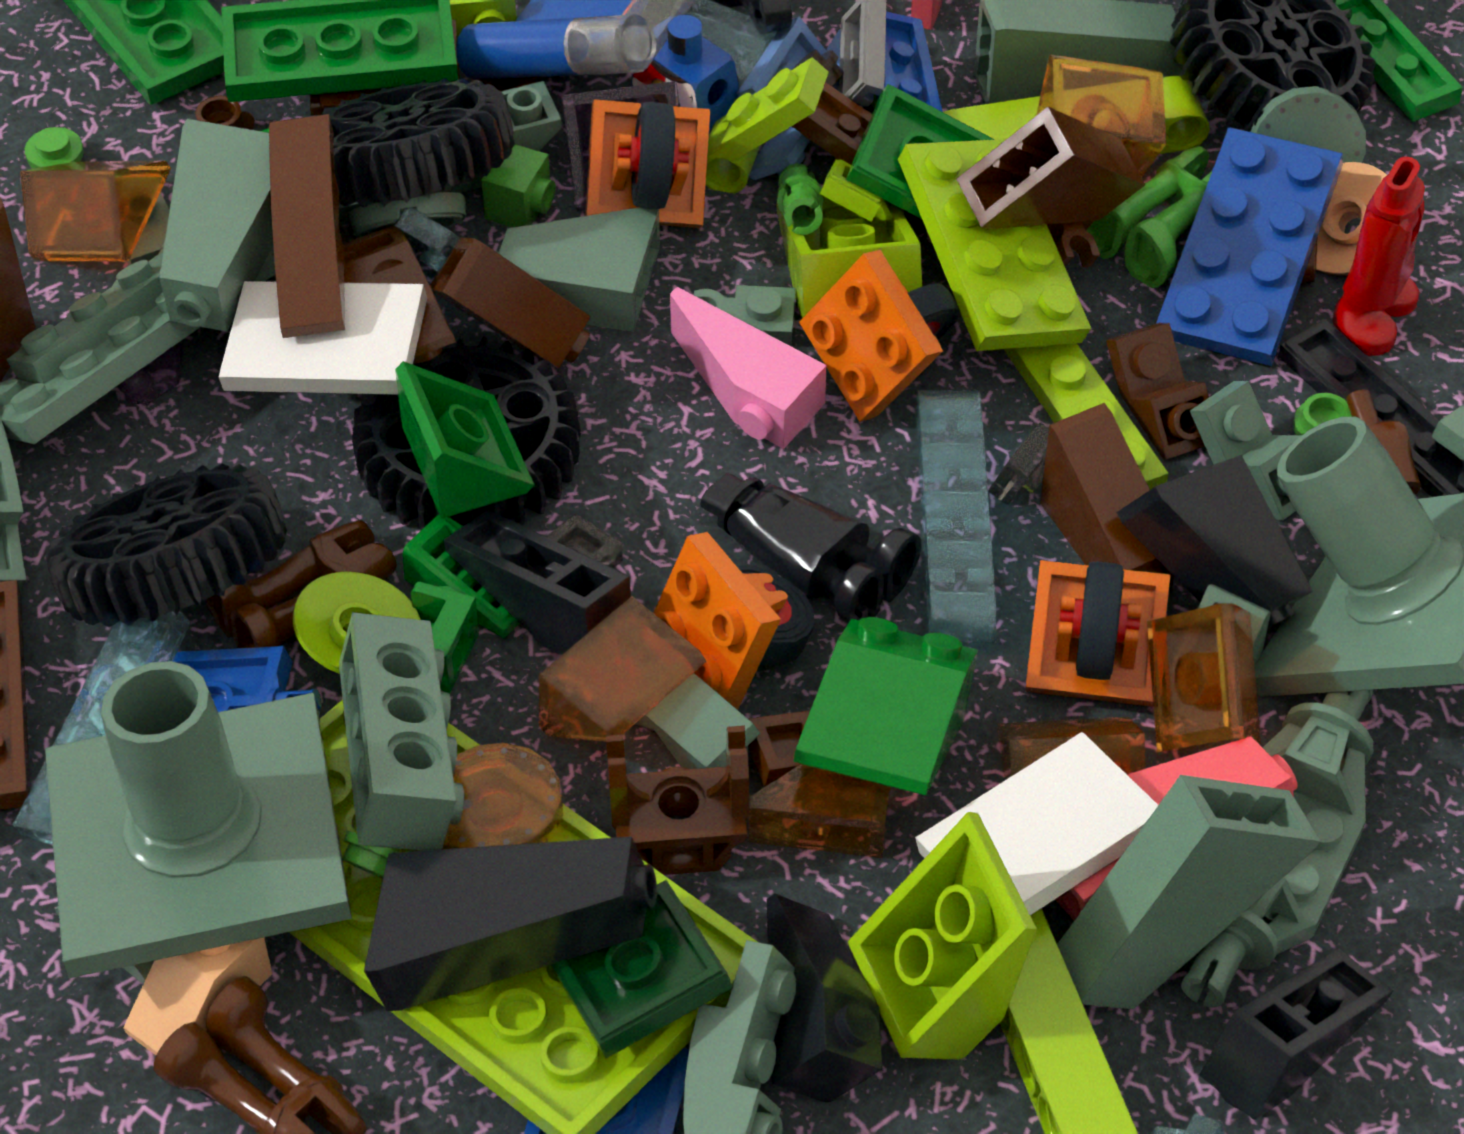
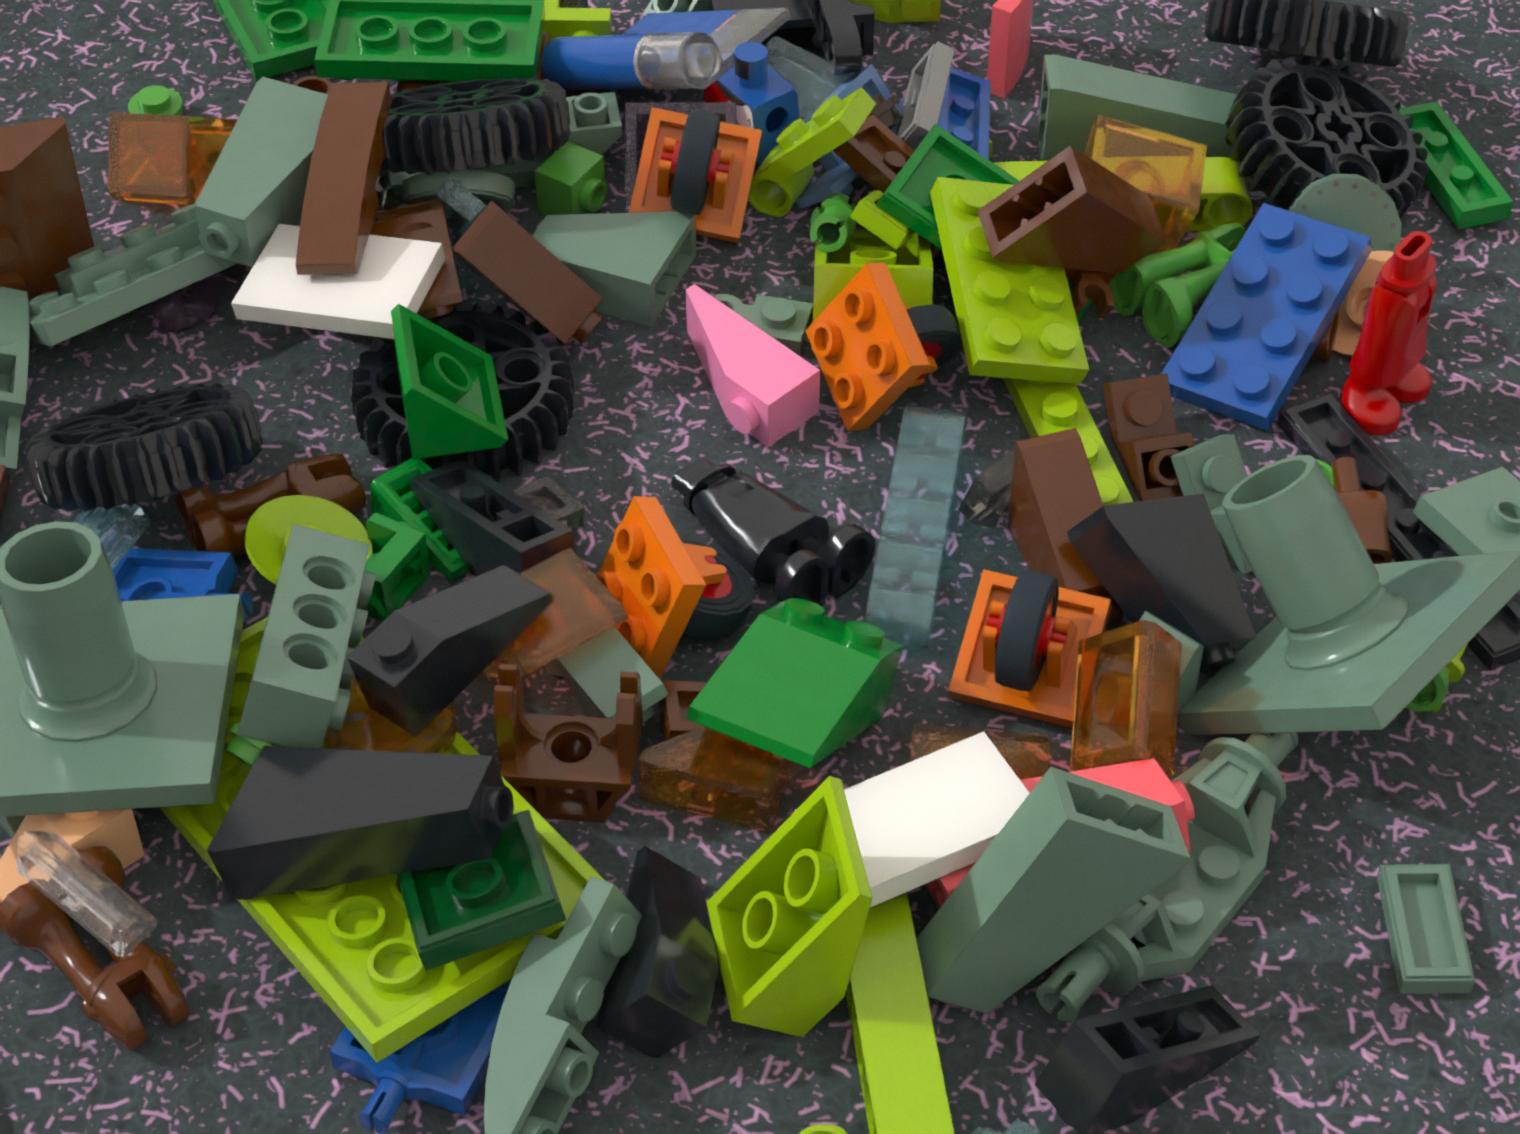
camera: 10 degrees right, 5 degrees down
(241, 1028) = (83, 891): none -> clear slope
(539, 720) = (442, 643): none -> black slope

